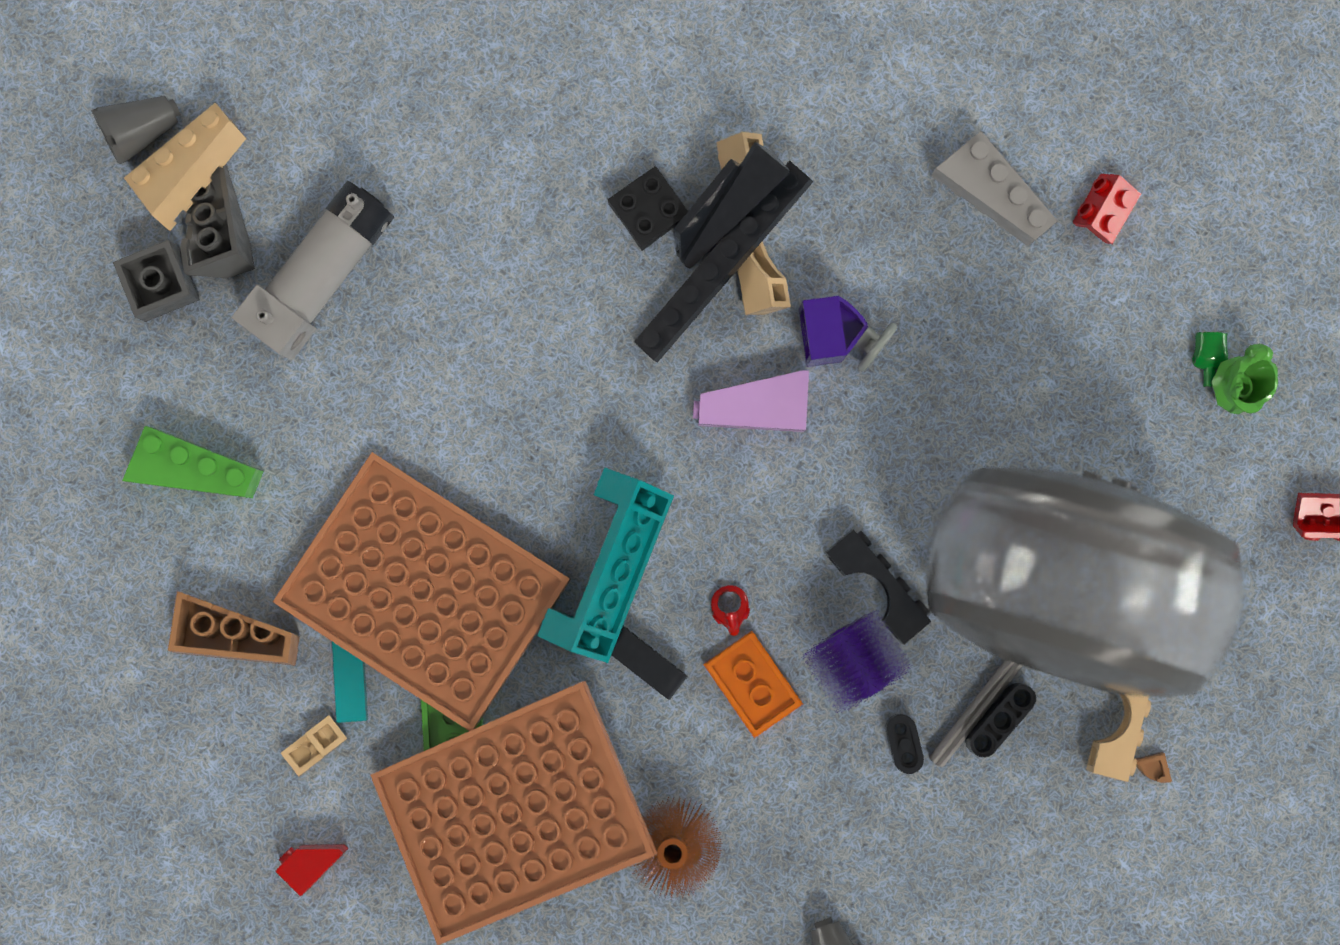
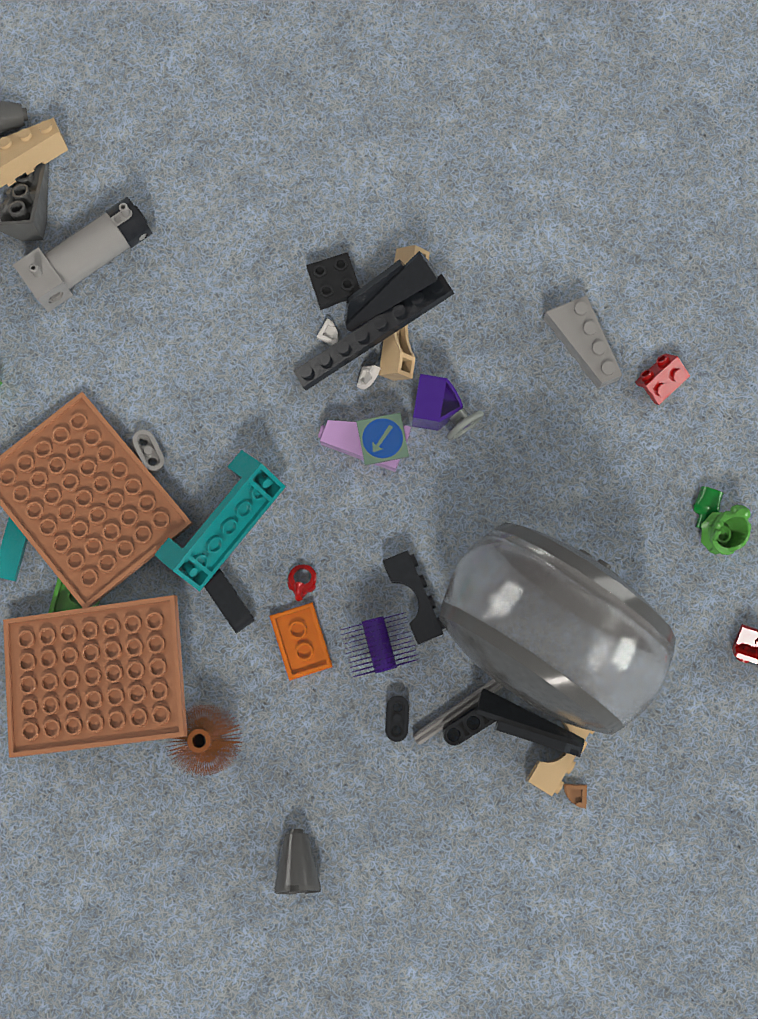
camera: 15 degrees right, 5 degrees down
(482, 503) = (148, 452): none -> light grey plate
(663, 279) = (328, 333): none -> white tile
(731, 320) = (367, 376): none -> white tile
(778, 397) = (382, 439): none -> tile
(1070, 705) = (527, 725): none -> black wedge

